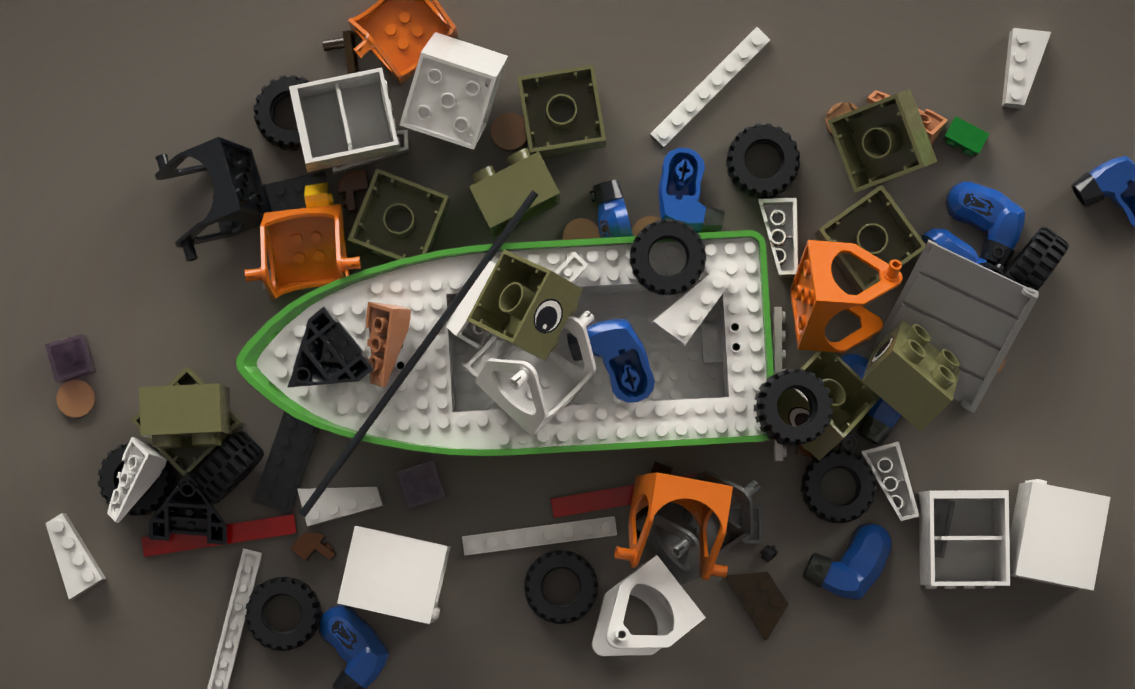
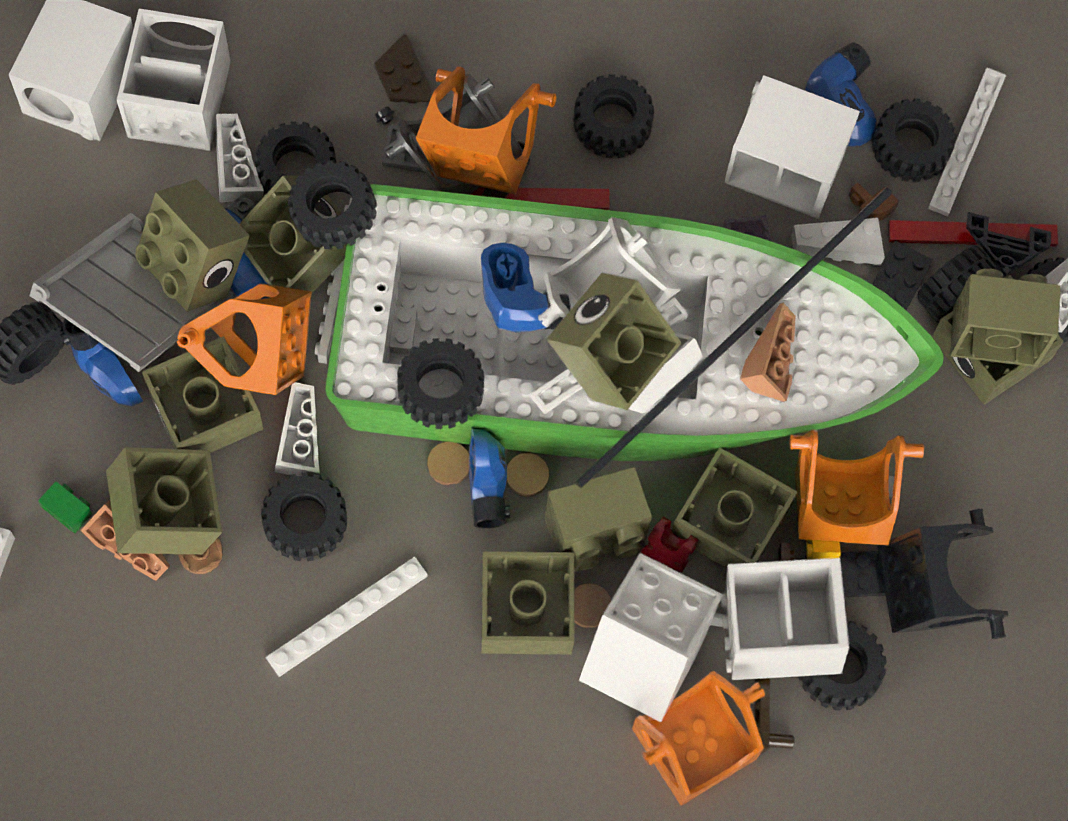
camera: 175 degrees left, 15 degrees down
(328, 354) = (837, 345): black wedge -> none
(450, 183) = (668, 548): none -> dark red piece
(539, 535) = (627, 175): white plate -> none
(665, 597) = (504, 57): white piece -> none
(681, 191) = (406, 494): blue piece -> none
(690, 310) = (432, 318): white wedge -> none
(857, 567) = (293, 83): blue piece -> none
(990, 213) = (58, 416): blue piece -> none

